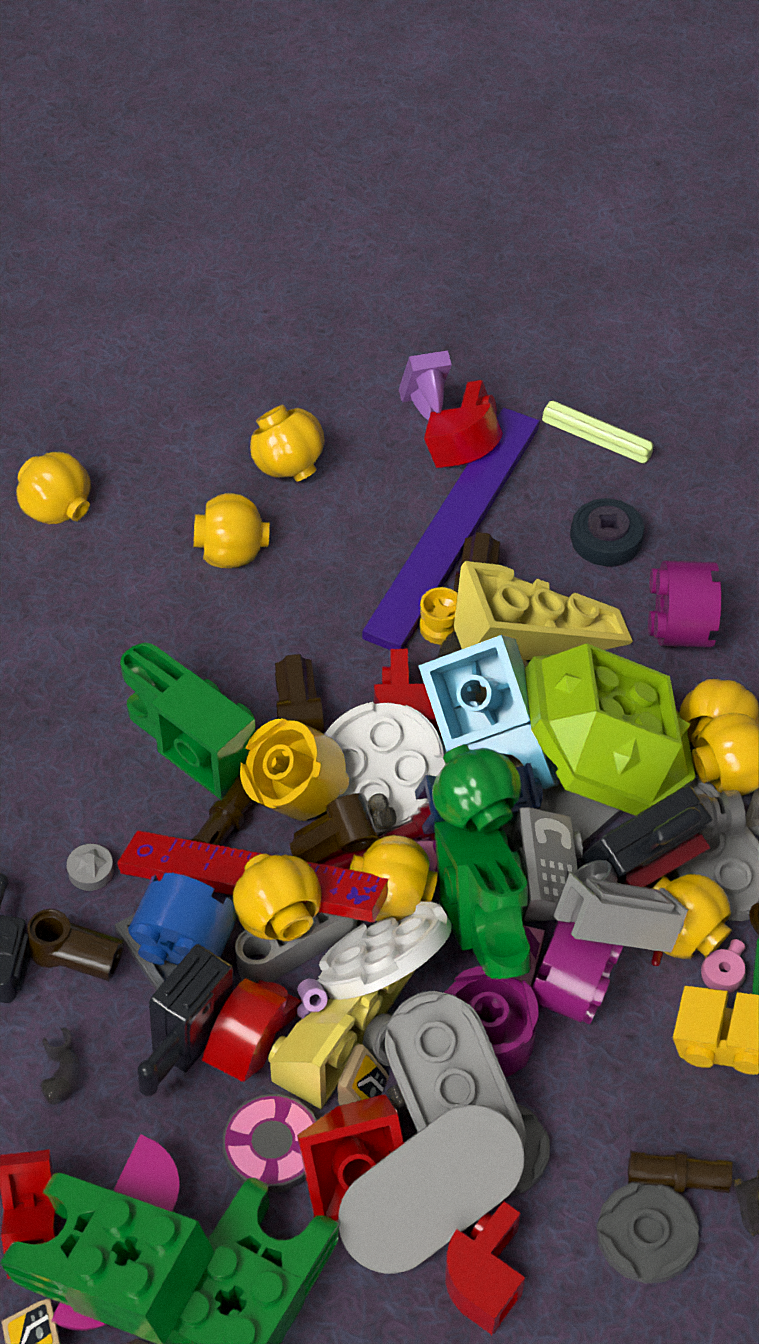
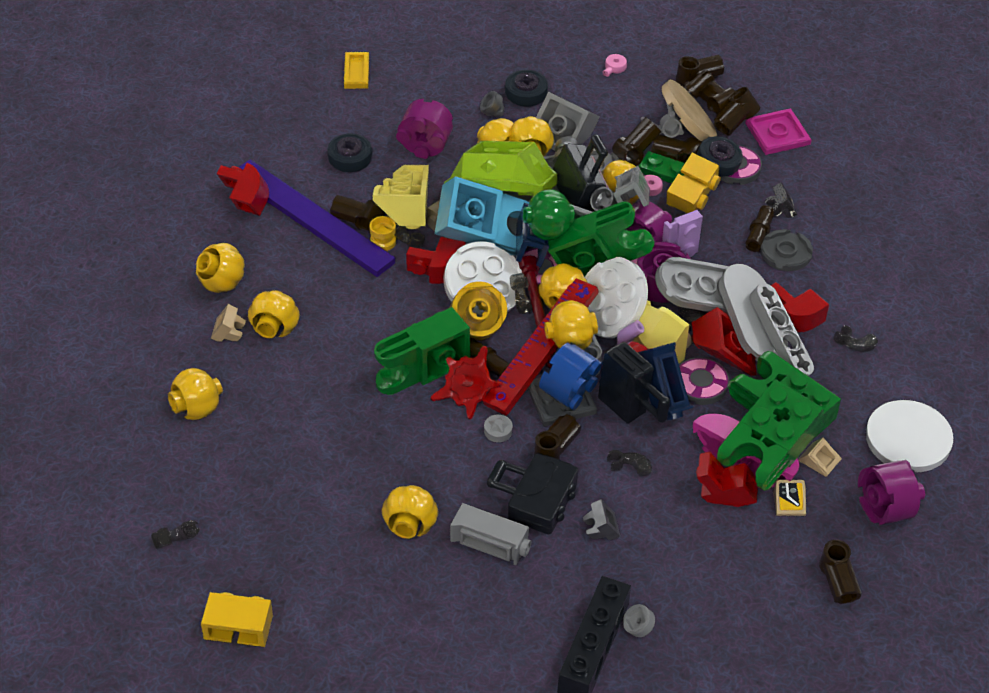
camera: 75 degrees left, 5 degrees down
(157, 798) = (467, 381): none -> red piece
(172, 1100) = (667, 379): none -> dark blue window
(192, 484) = (226, 325): none -> tan tile
(297, 692) = (415, 308): dark brown piece -> none
(342, 830) = (528, 295): dark brown piece -> none
(398, 1242) = (768, 304): none -> light grey beam
(425, 381) = (206, 186): medium lavender tile -> none
(578, 1030) = (684, 232): none -> lavender plate
(598, 432) = (269, 139): yellowish green axle -> none

